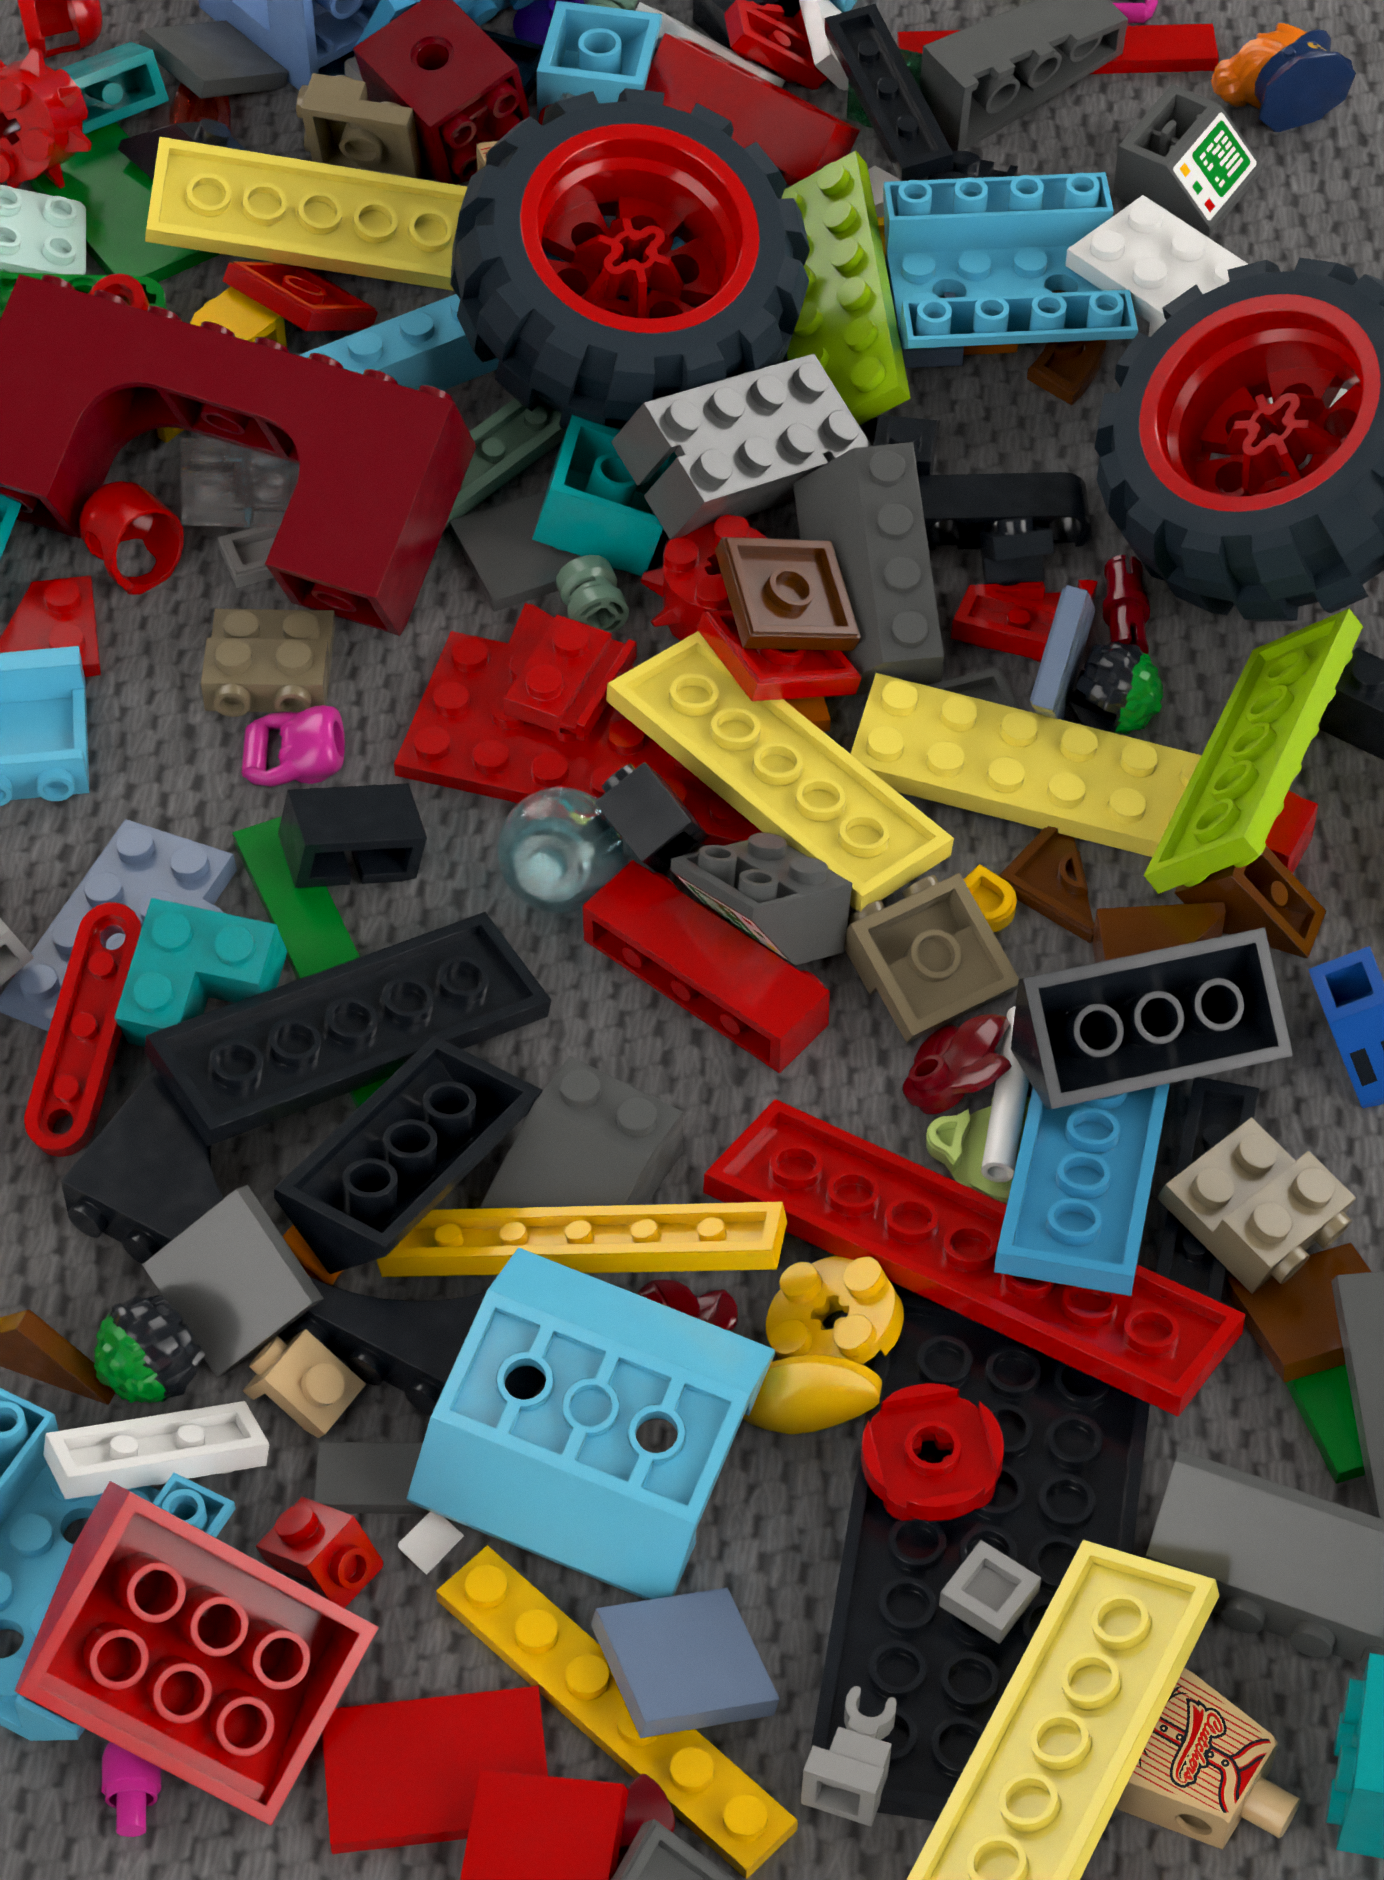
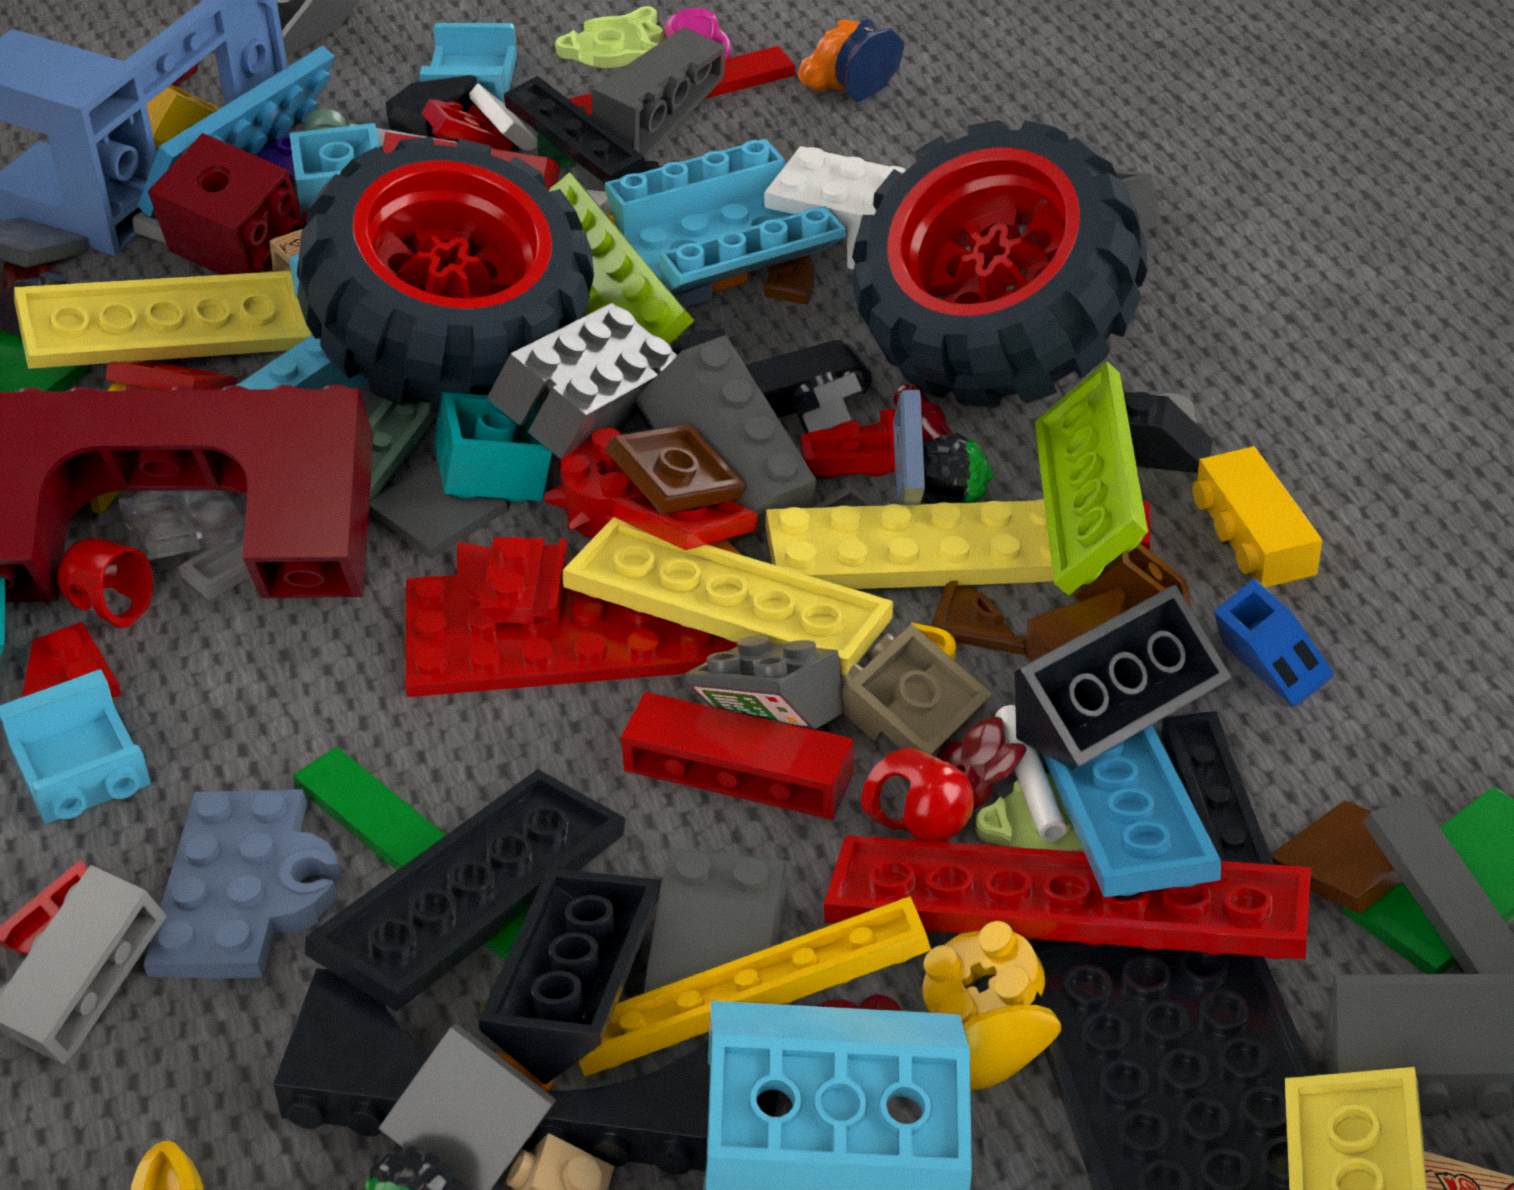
camera: 20 degrees left, 10 degrees down
(82, 1032) = (240, 958): red plate -> none
(193, 956) = (312, 869): teal brick -> none
(267, 660) = (264, 643): dark tan plate -> none
(309, 746) = (327, 695): dark pink piece -> none
(357, 132) = (168, 250): dark tan plate -> none
(371, 821) = (413, 730): black piece -> none
(558, 849) = (580, 702): clear light blue brick -> none
(592, 593) = (506, 516): sand green wheel -> none
(650, 816) = (646, 651): black piece -> none
(885, 1089) = (937, 800): none -> red helmet
(925, 1489) = (1118, 1084): red plate -> none
(990, 1591) = (1232, 1145): light grey plate -> none
(1186, 160) = (811, 116): dark grey slope -> none
(1258, 1205) = (1270, 792): dark tan plate -> none

